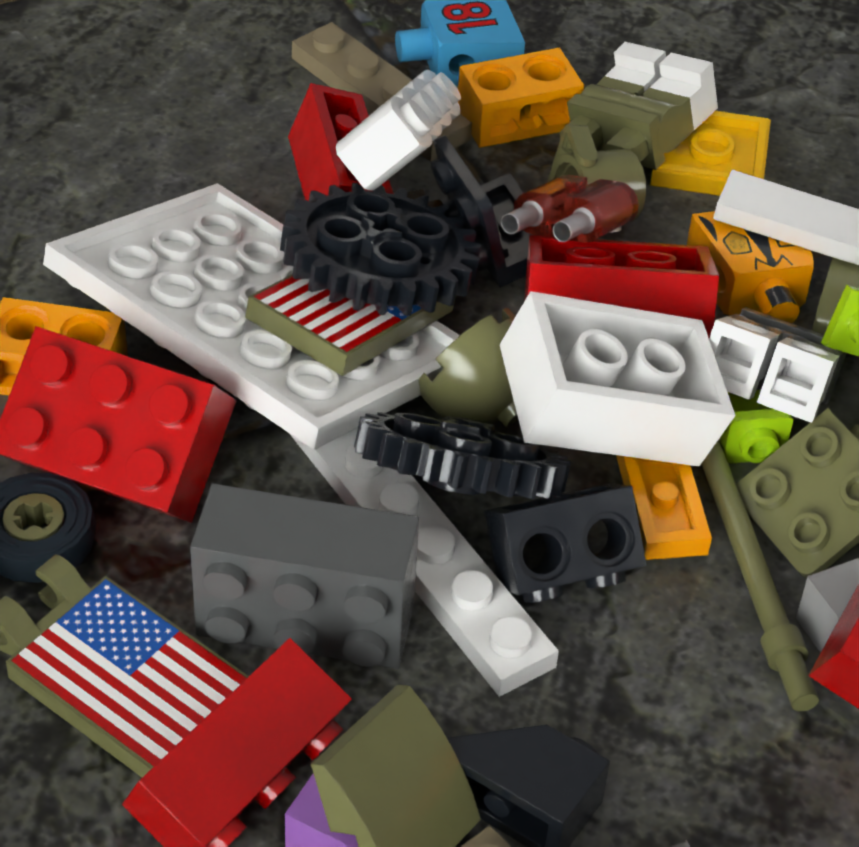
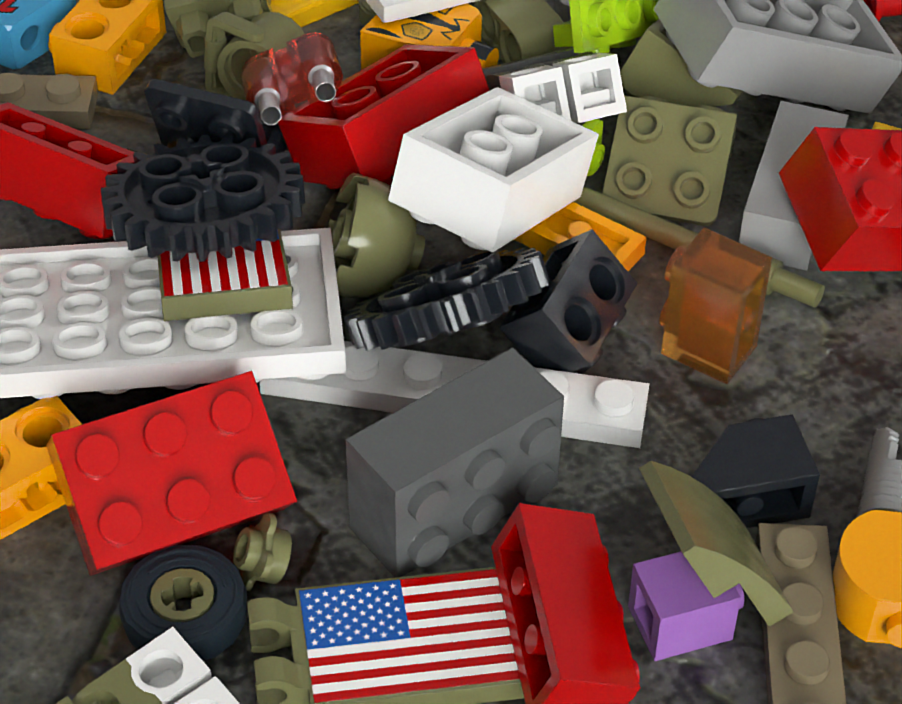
camera: 45 degrees left, 0 degrees up
(118, 533) = (262, 552): none -> olive plate
(400, 129) = (104, 95): white brick -> none
(671, 627) = (714, 304): none -> clear orange brick

